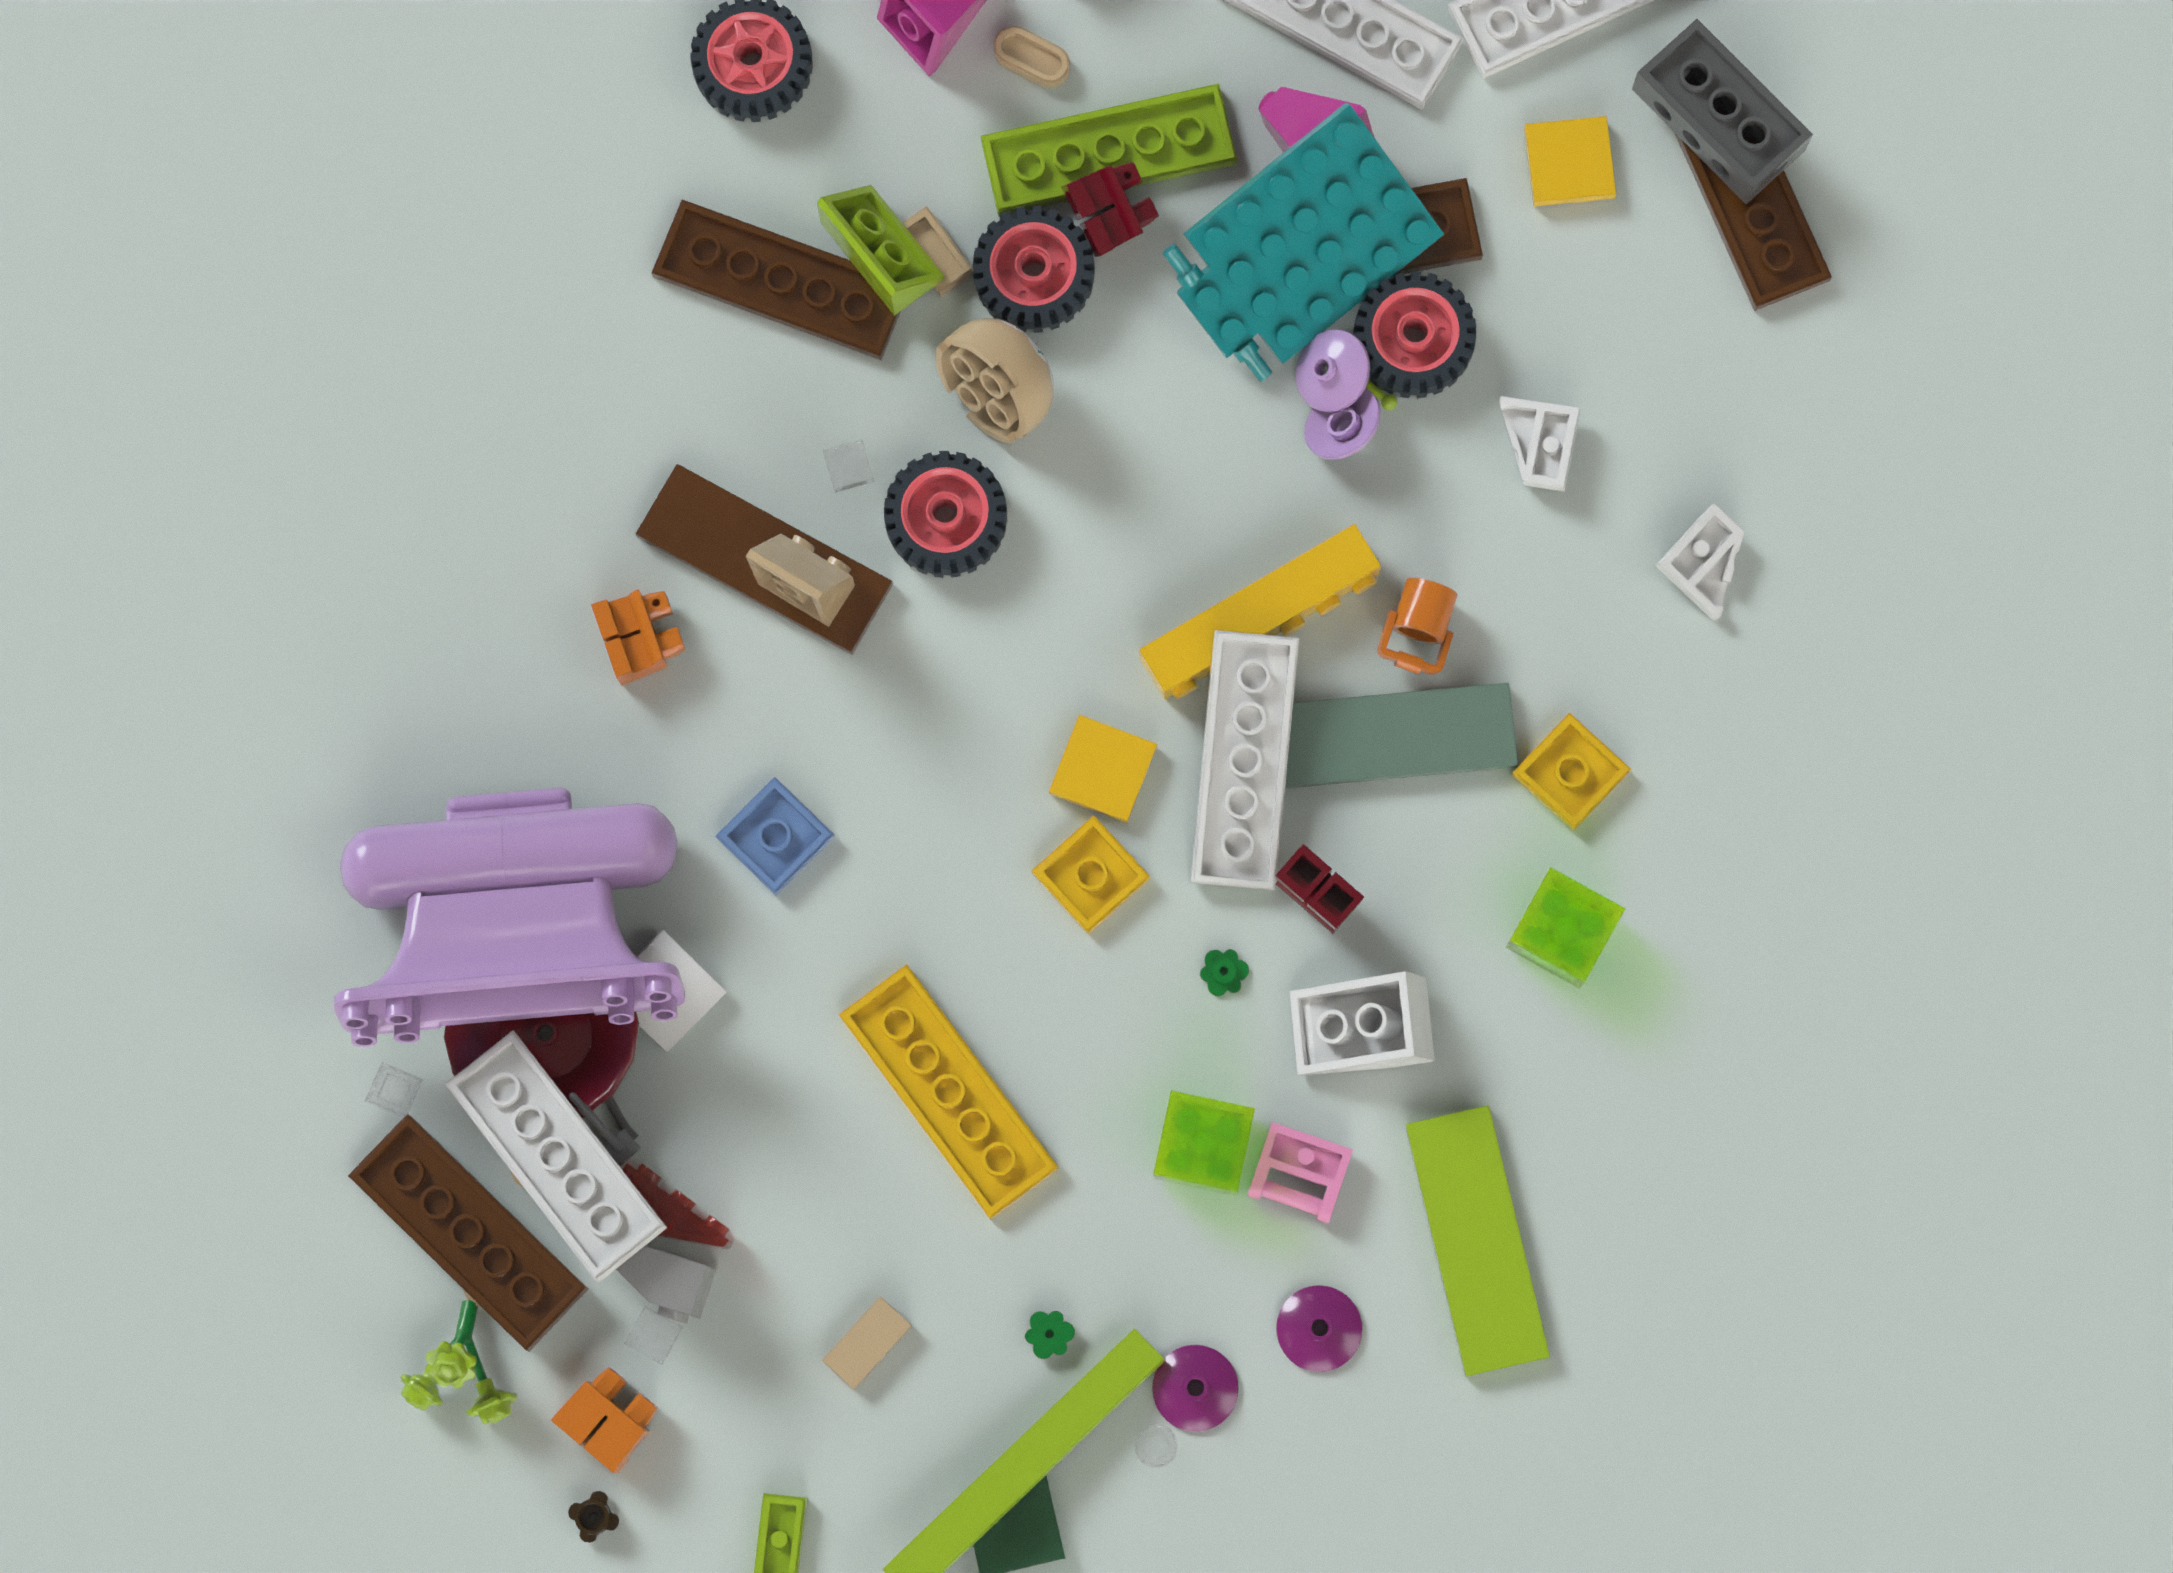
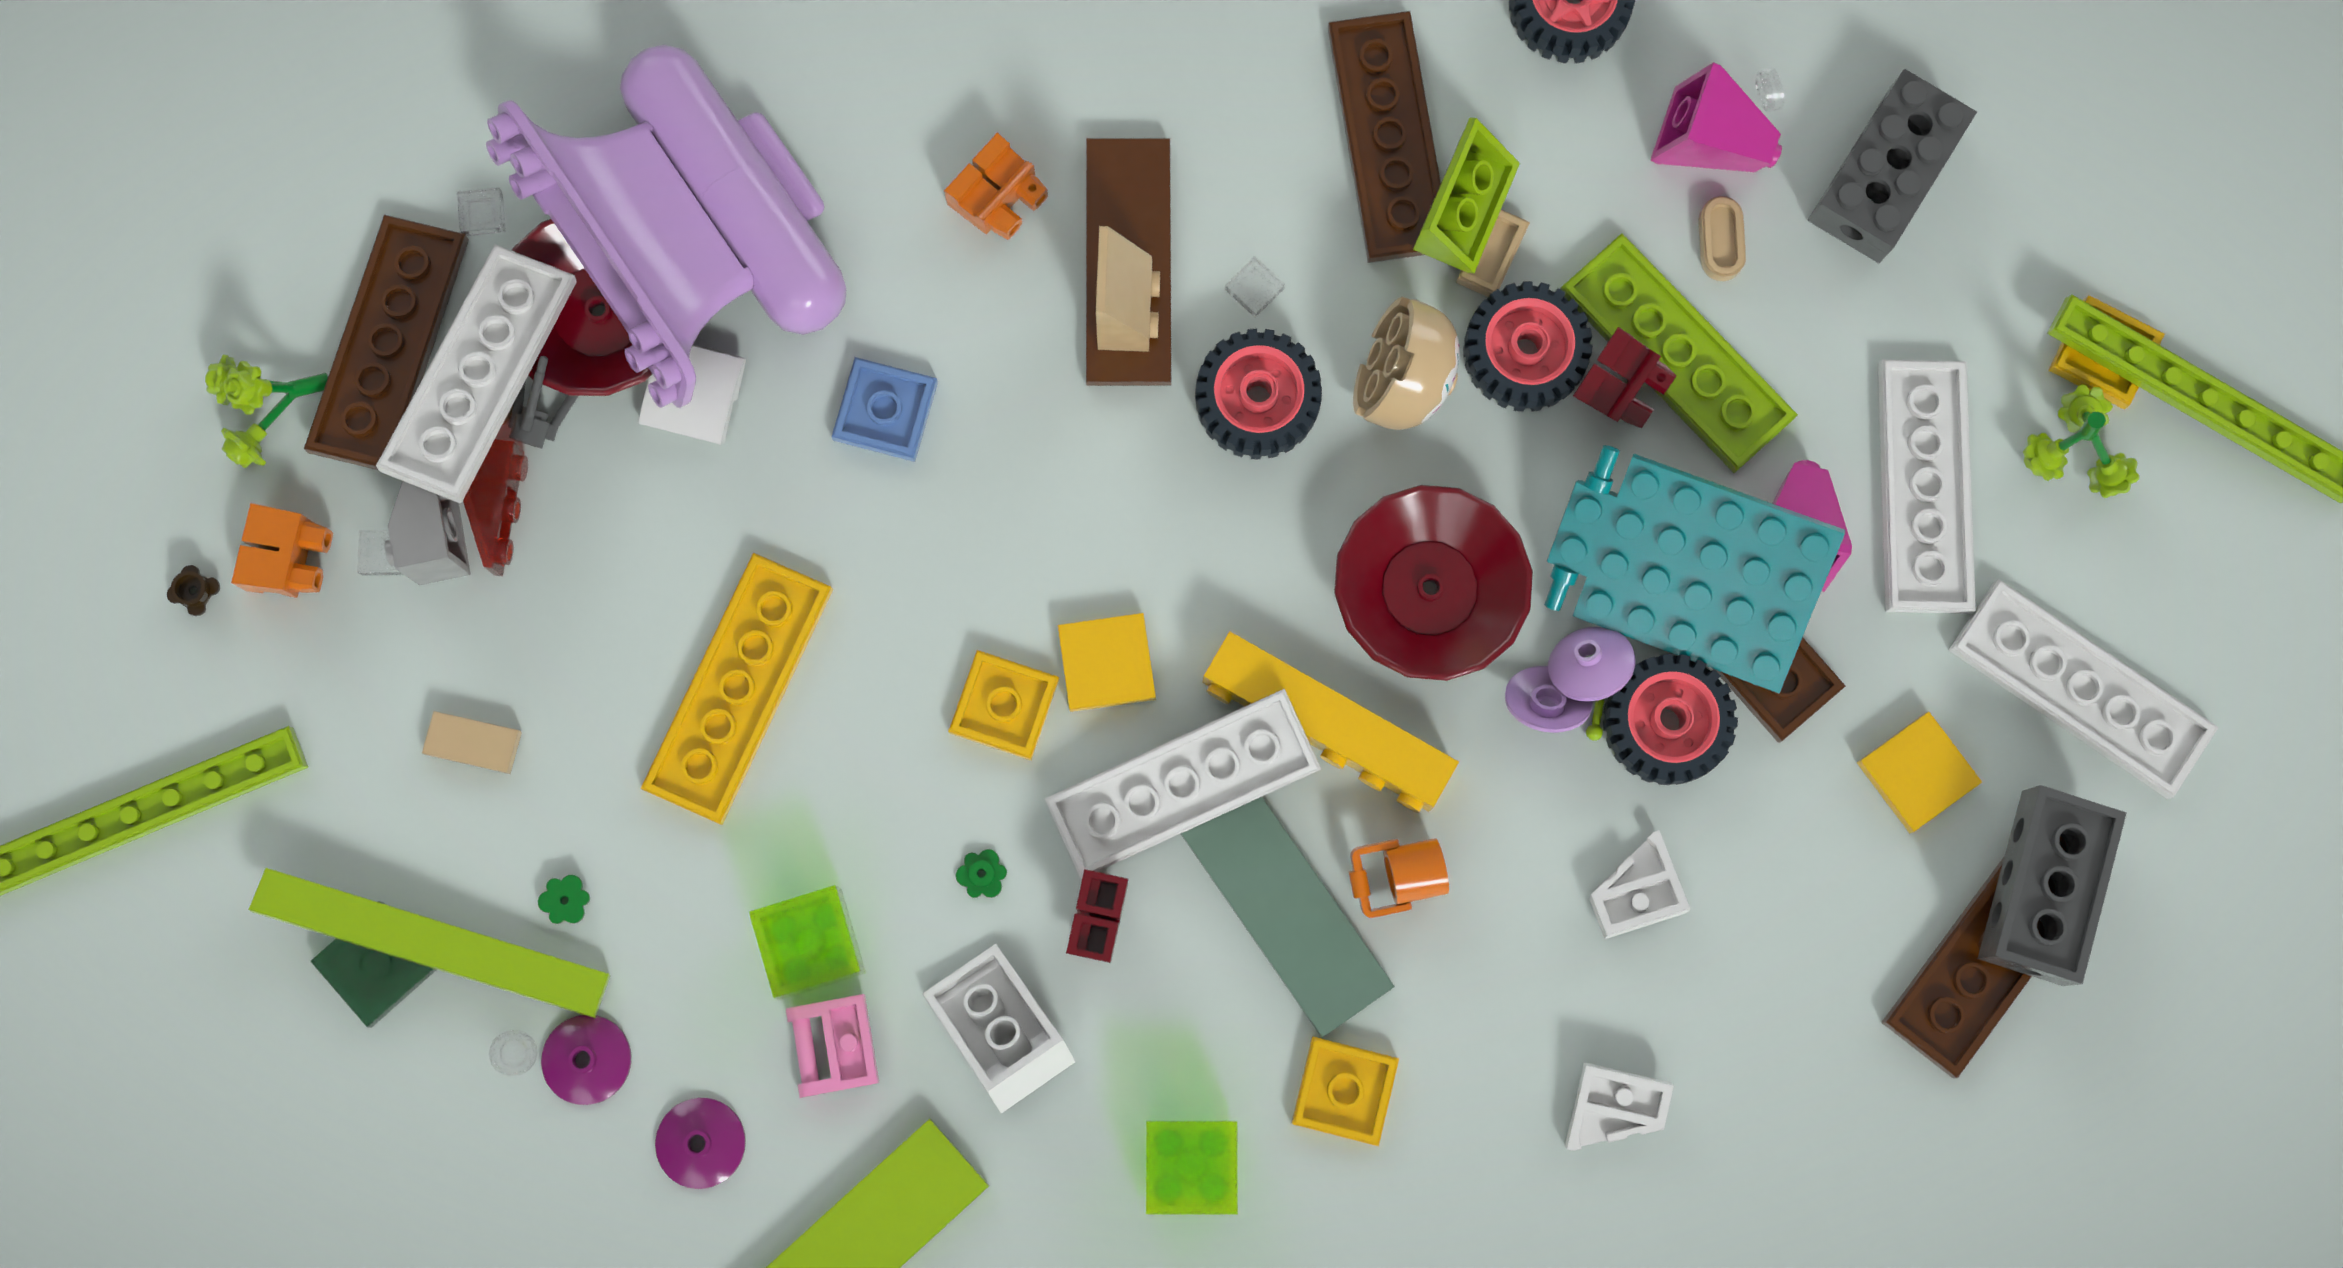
camera: 50 degrees right, 0 degrees up
(1202, 419) = (1444, 540): none -> dark red dish

